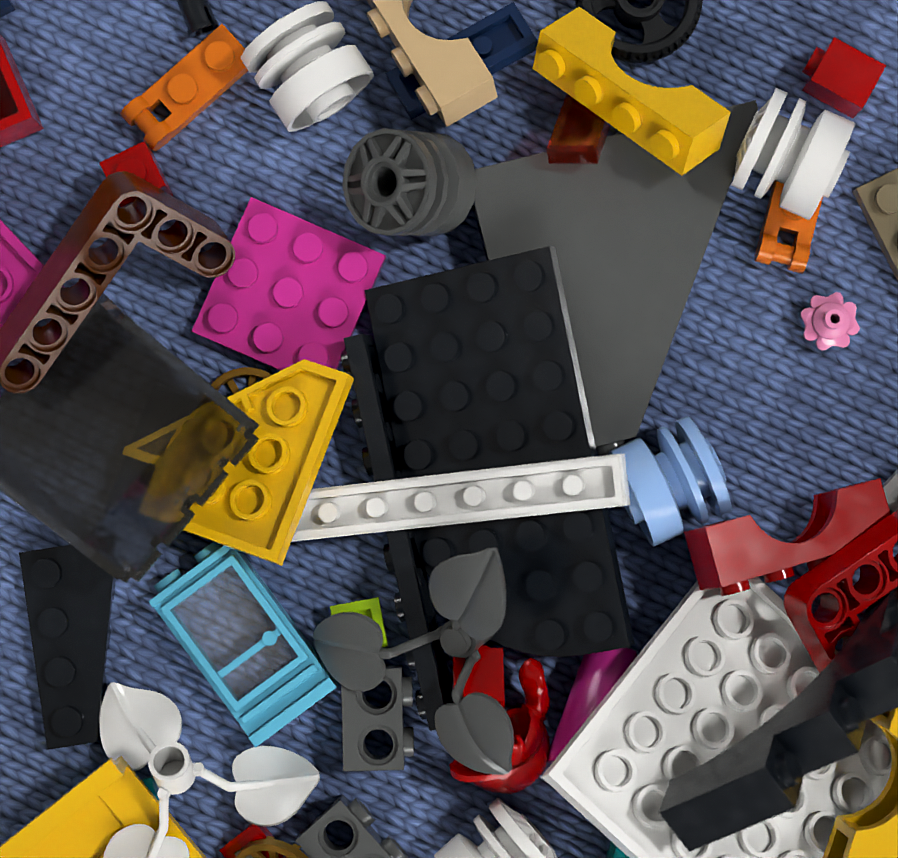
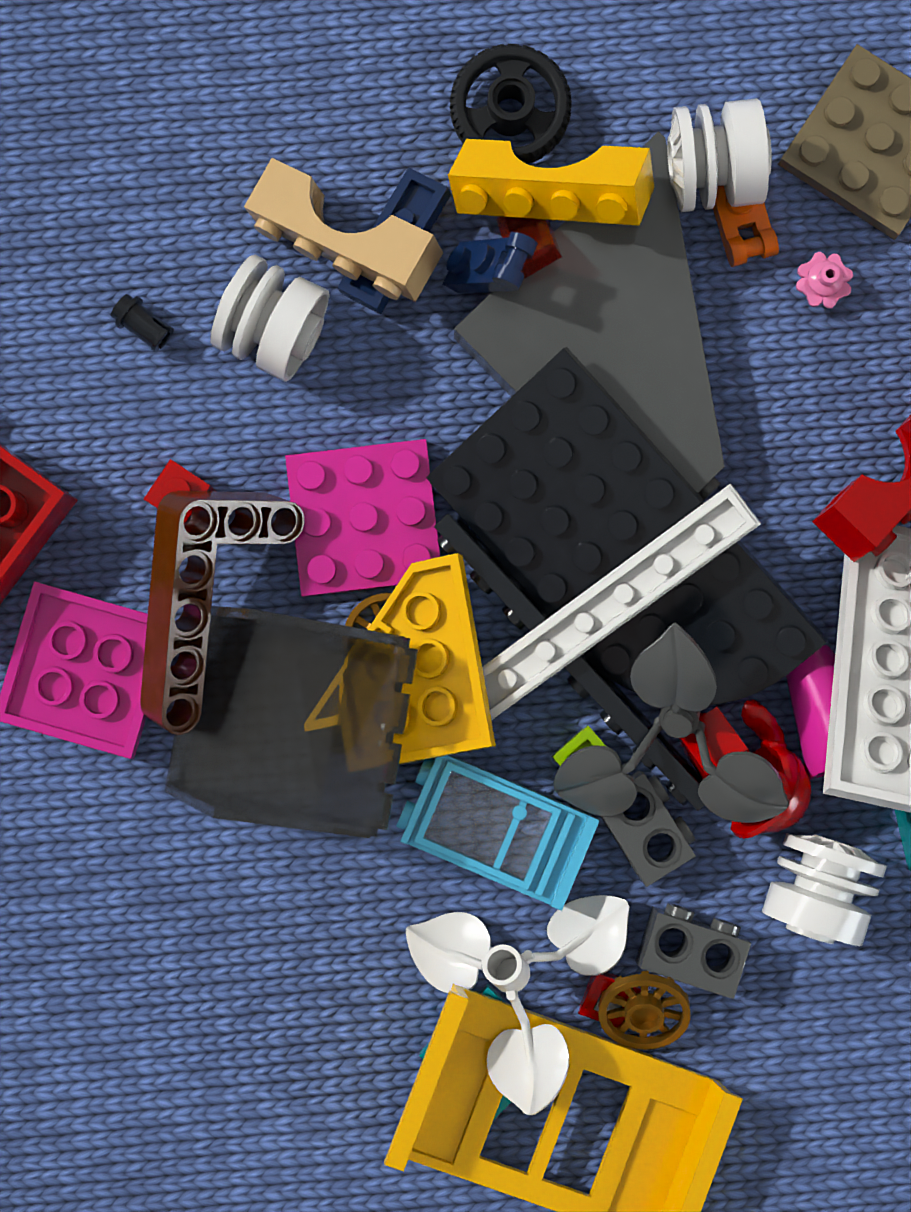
camera: 30 degrees left, 0 degrees up
(70, 639) = (347, 905): black wing -> none
(188, 88) = (179, 395): orange plate -> none
(409, 183) = (413, 365): dark grey wheel -> none
(530, 131) = (489, 264): none -> dark blue plate
(673, 480) = (780, 478): light blue wheel -> none
(842, 76) = (716, 72): red brick -> none

